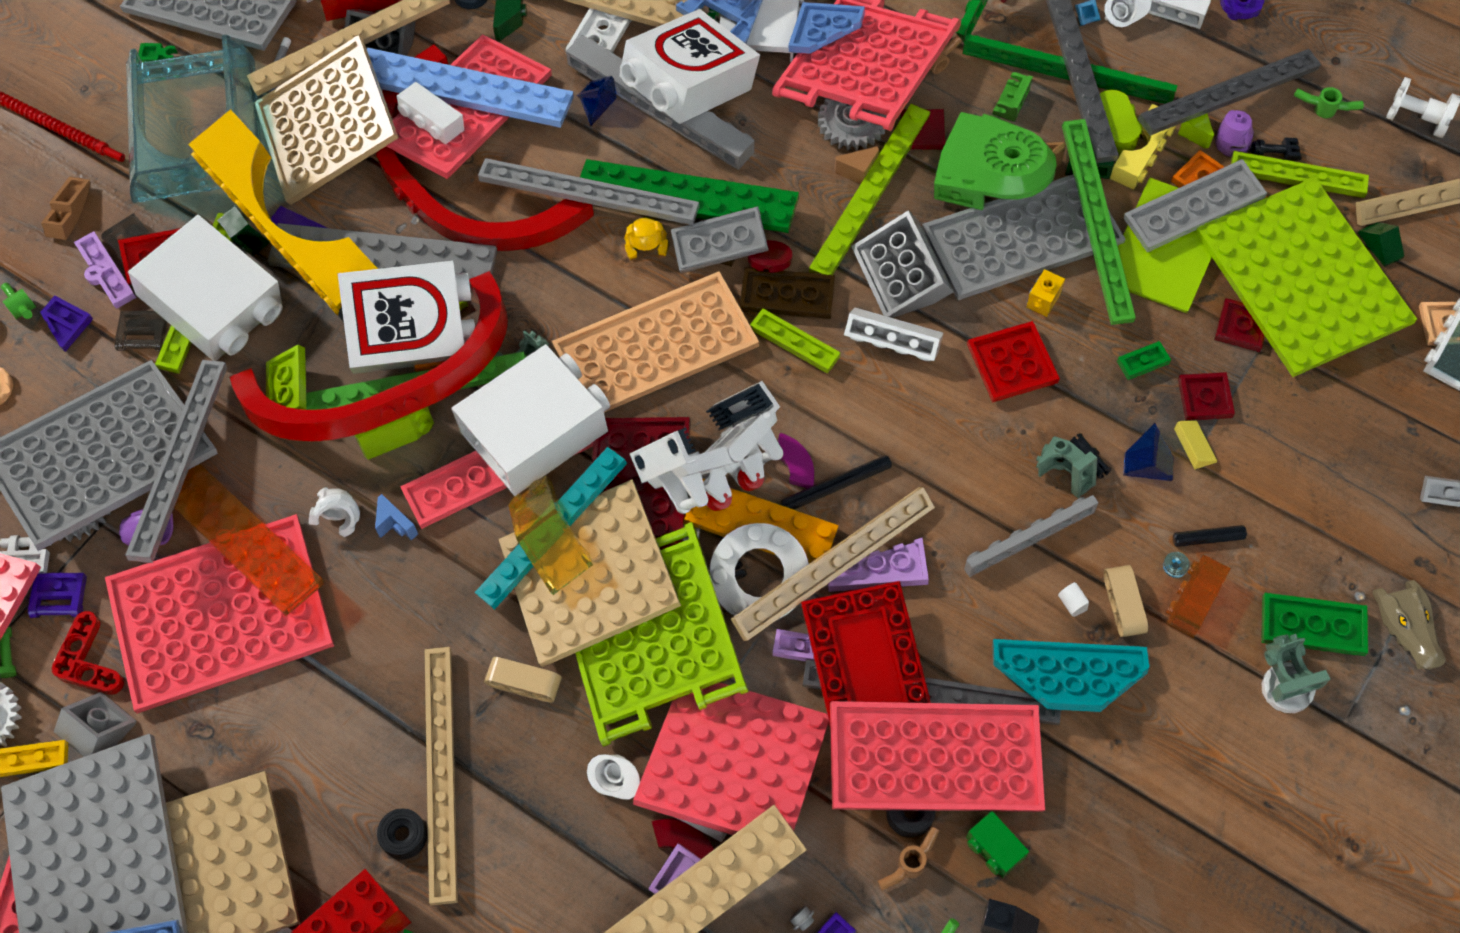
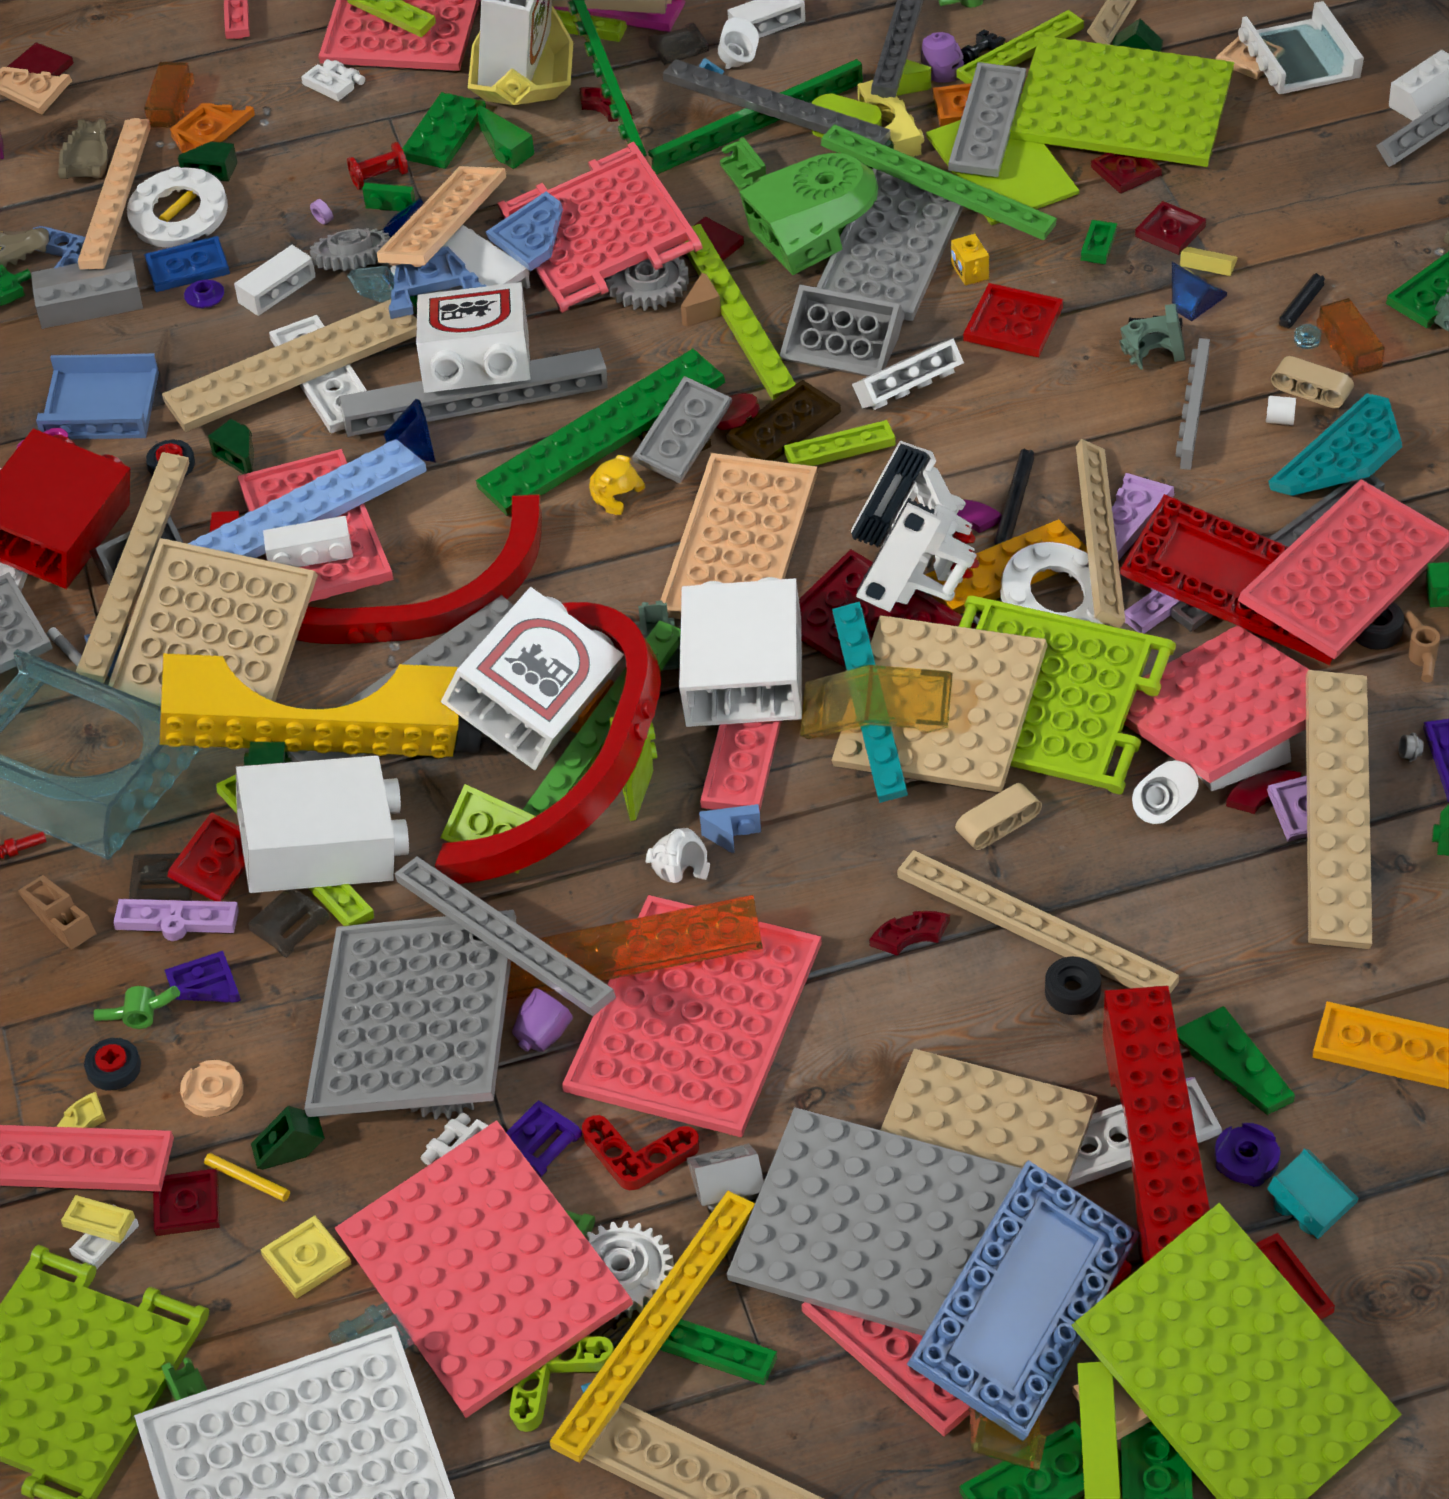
camera: 50 degrees left, 15 degrees down
(384, 691) = (910, 929): none -> dark red tile
(589, 191) = (526, 485): light grey plate -> none

